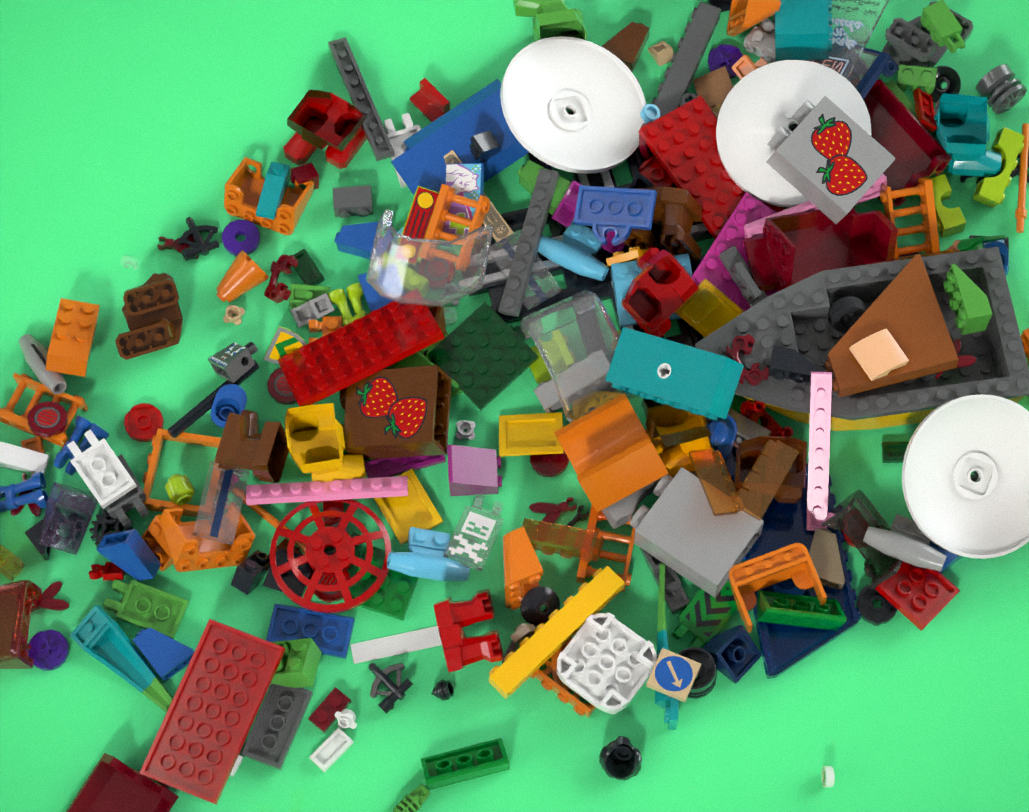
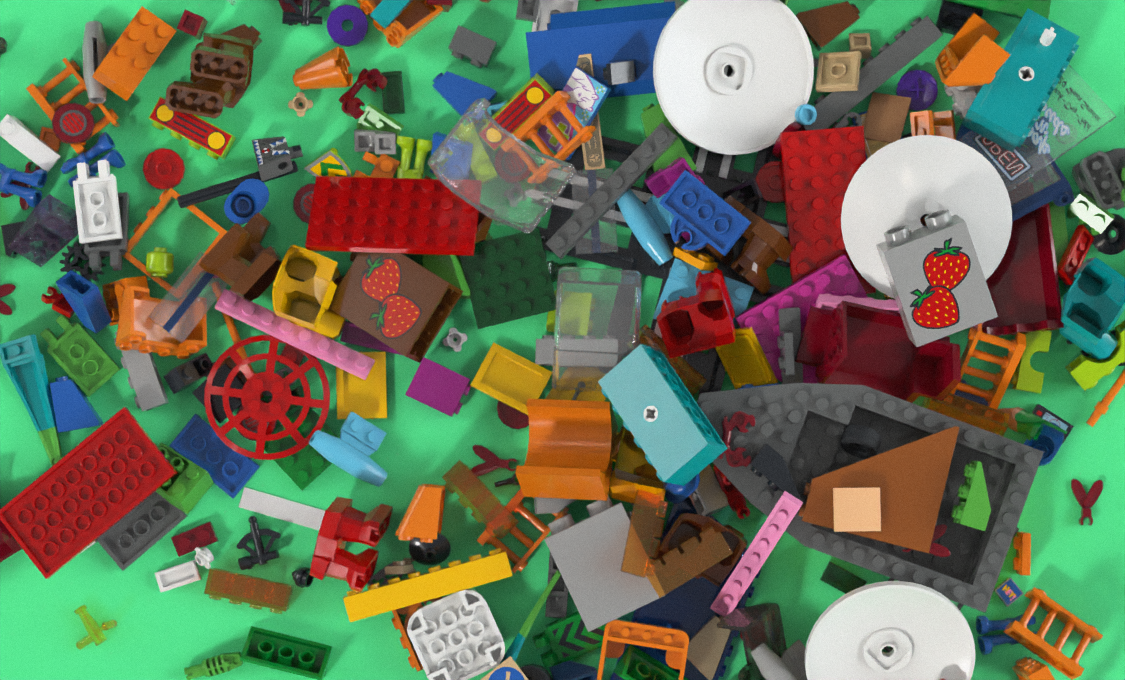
camera: 25 degrees right, 20 degrees up
(110, 295) = (192, 24): none -> dark red panel
(151, 377) = (192, 128): none -> brick
(211, 593) = (144, 379): none -> light grey brick
(401, 725) = (248, 589): none -> clear orange brick
(475, 534) = (407, 449): clear tile -> none
(656, 74) = (838, 71): none -> tan tile

